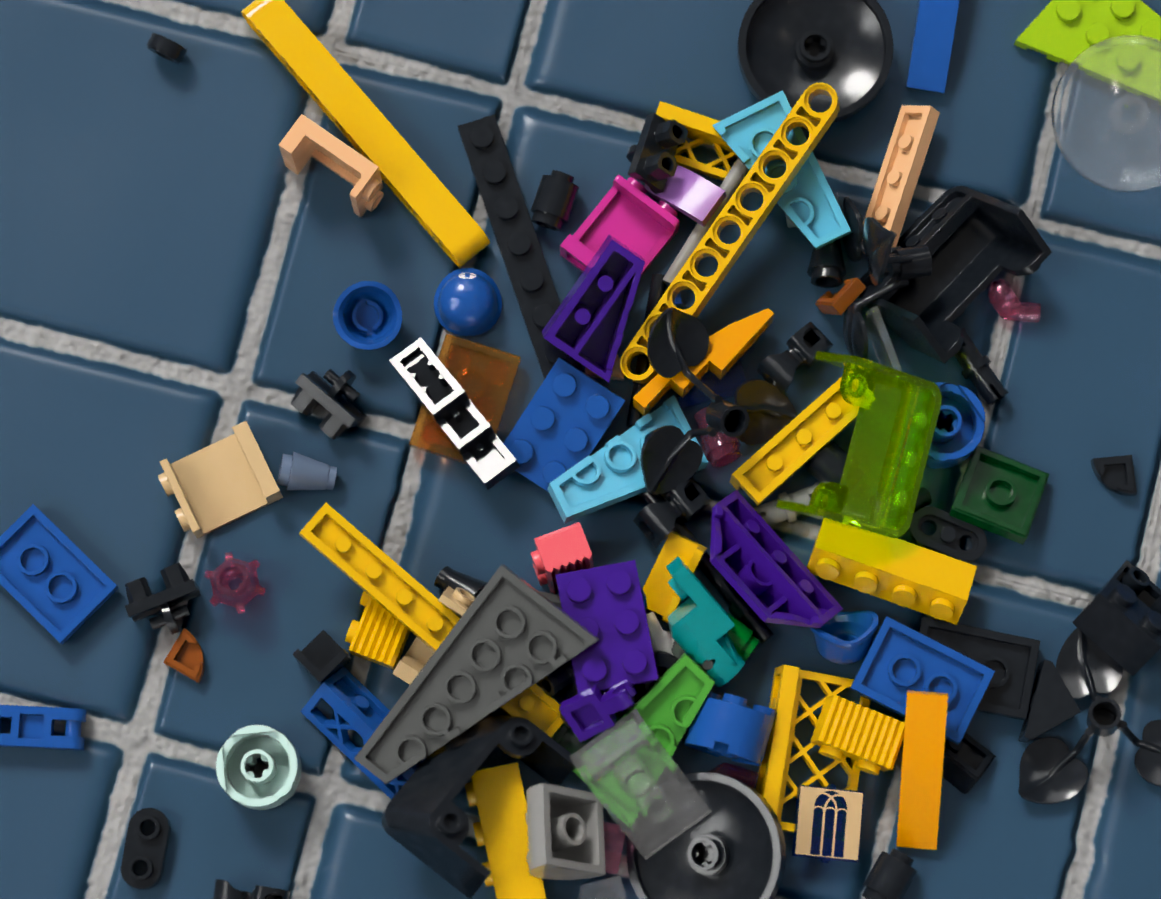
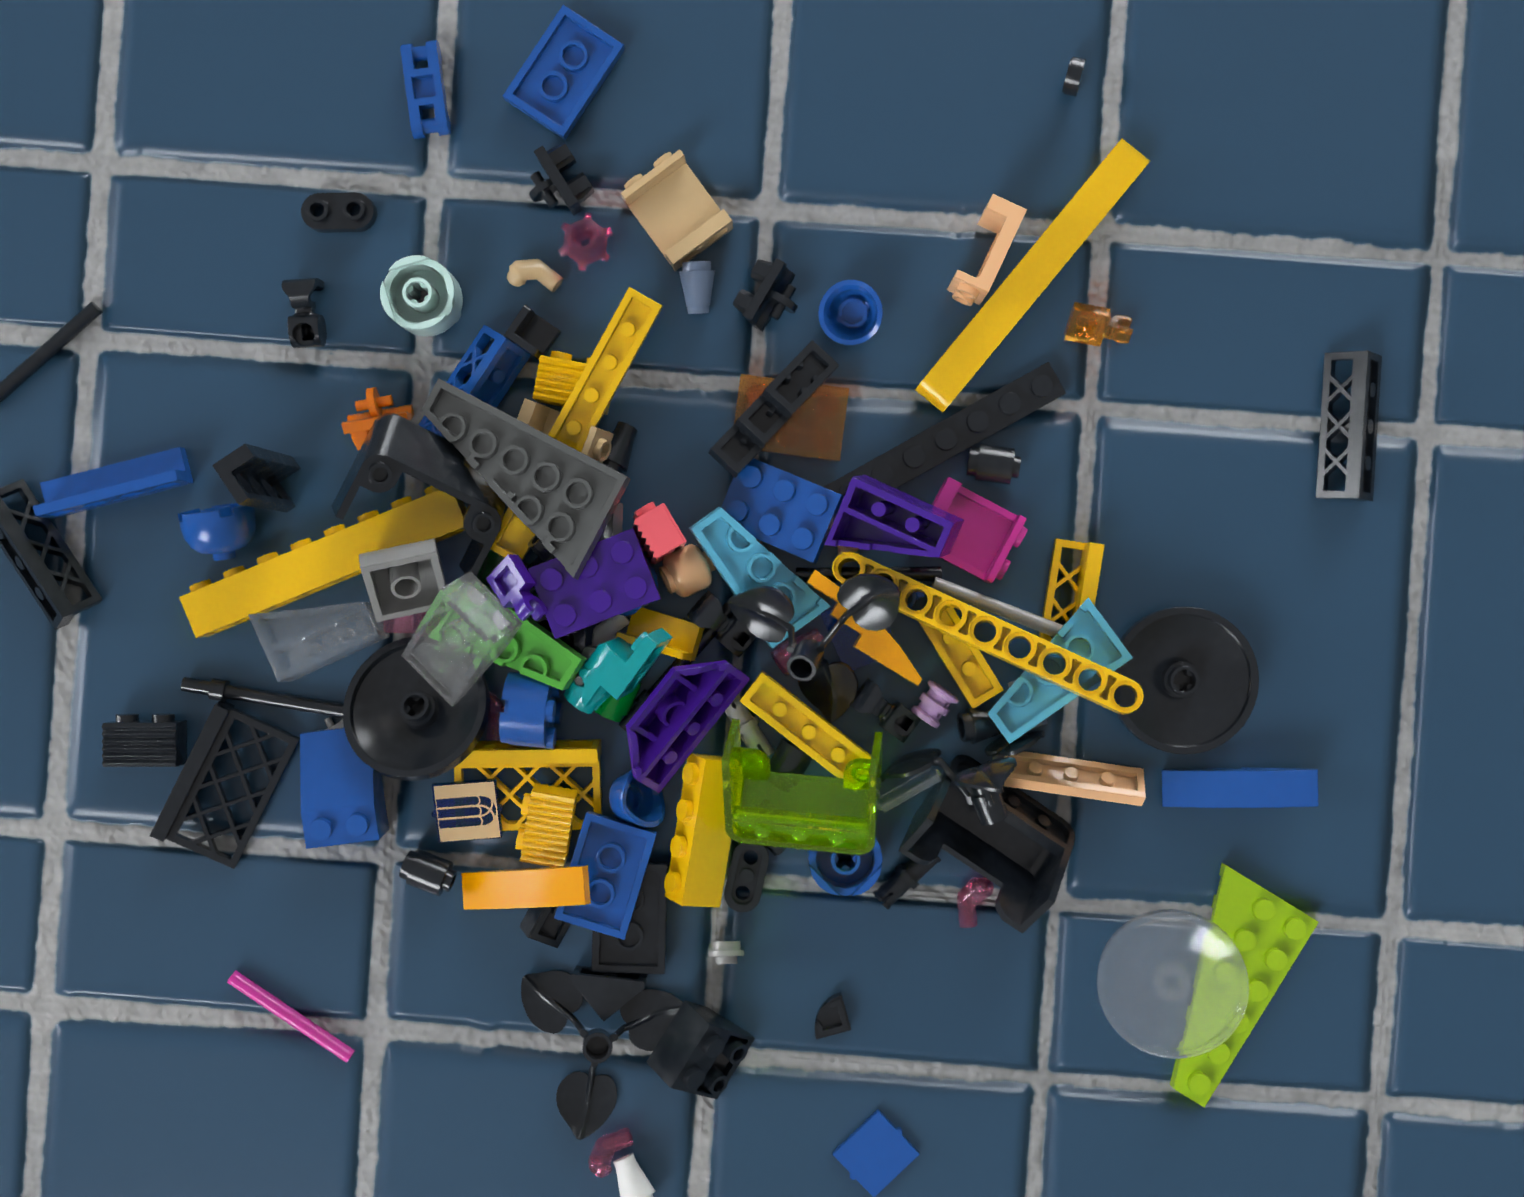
camera: 80 degrees right, 10 degrees up
(187, 656) = (514, 214): dark orange tile -> none
(252, 647) = (533, 270): none -> tan arm
(377, 849) = (360, 424): none -> orange hips
(427, 73) = (1092, 323): none -> clear orange plate
(467, 302) = (884, 403): blue helmet -> none
(610, 536) = (686, 571): none -> light nougat head
(654, 155) = (1054, 548): black hips -> none
(690, 195) = (1022, 582): medium lavender slope -> none
(758, 268) = (963, 662): none -> yellow plate
(797, 305) = (934, 704): none -> lavender bush
(838, 303) = (944, 742): dark orange tile -> none
(999, 494) = (790, 916): dark green plate -> none
(1027, 571) = (726, 952): none -> light grey plate

